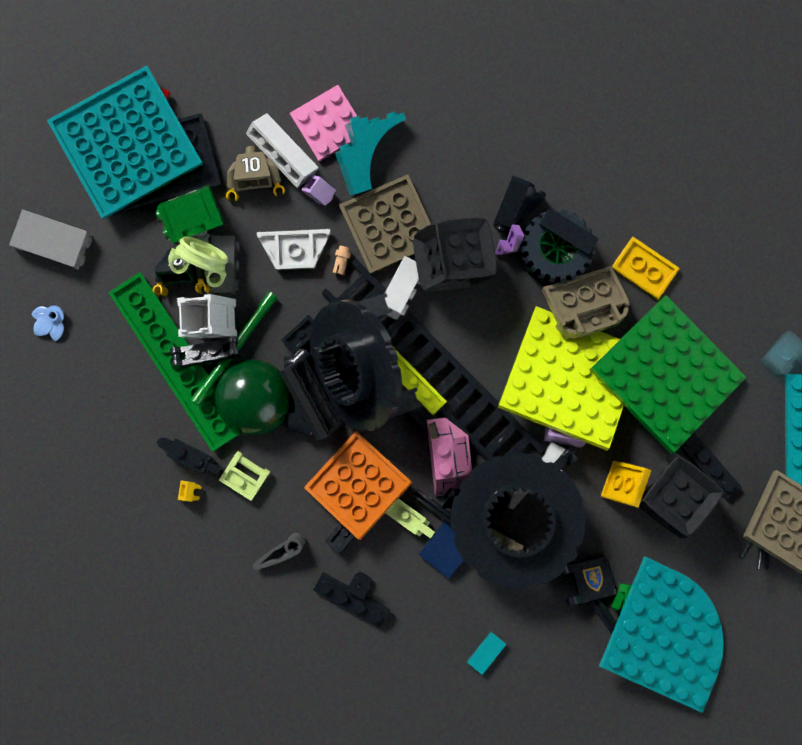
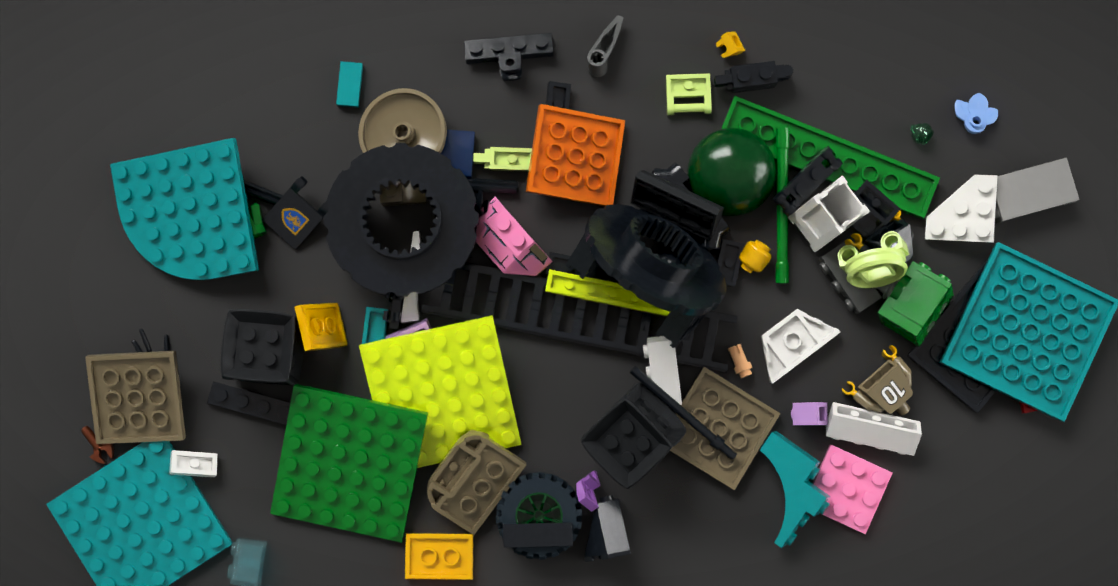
camera: 145 degrees right, 0 degrees up
(97, 333) = (921, 133): none -> clear green plate
(108, 254) = (967, 213): none -> white plate
(167, 303) = (880, 209): none -> black slope
(279, 326) = (755, 256): none -> yellow head
(398, 215) = (716, 441): none -> black bar
(467, 597) = (402, 118): none -> dark tan dish
(586, 459) = (374, 325): none -> teal tile
(779, 448) = (193, 463): none -> white plate

